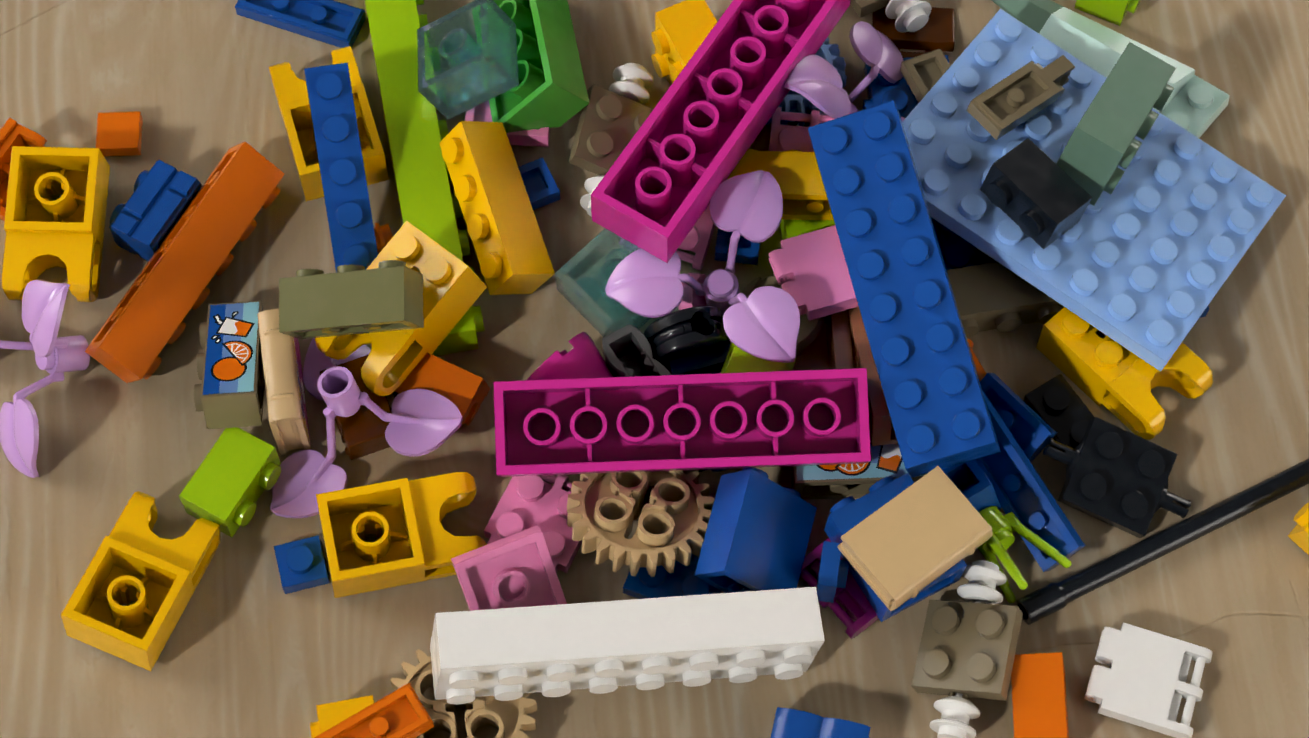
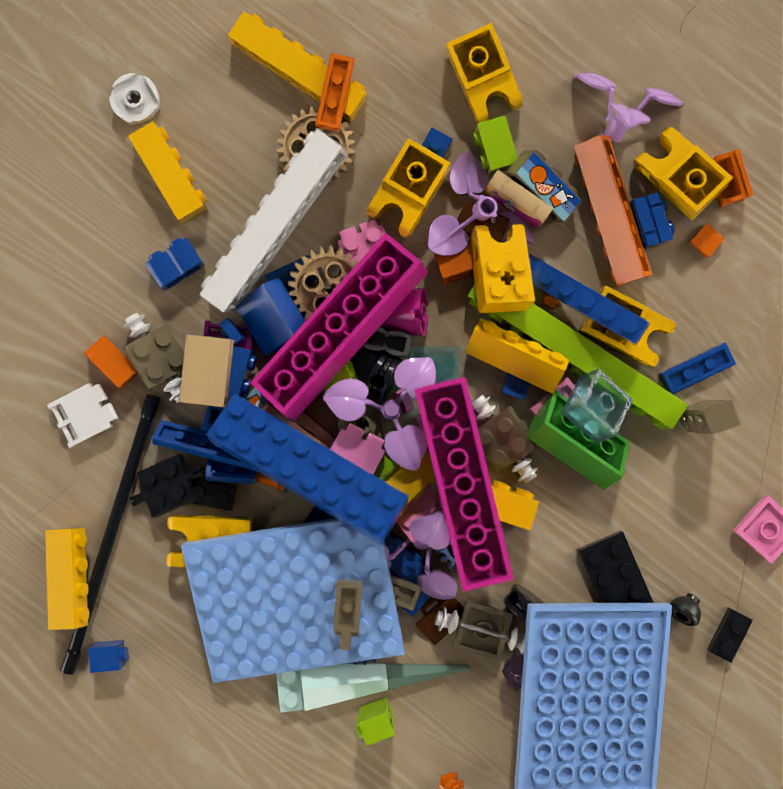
camera: 135 degrees right, 25 degrees up
(351, 301) = (516, 242): olive brick -> none
(509, 573) = (346, 209): bright pink plate -> none
(1003, 538) = (191, 414): lime plant -> none
(1035, 193) = (294, 565): black brick -> none
(1114, 119) = (294, 633): sand green brick -> none

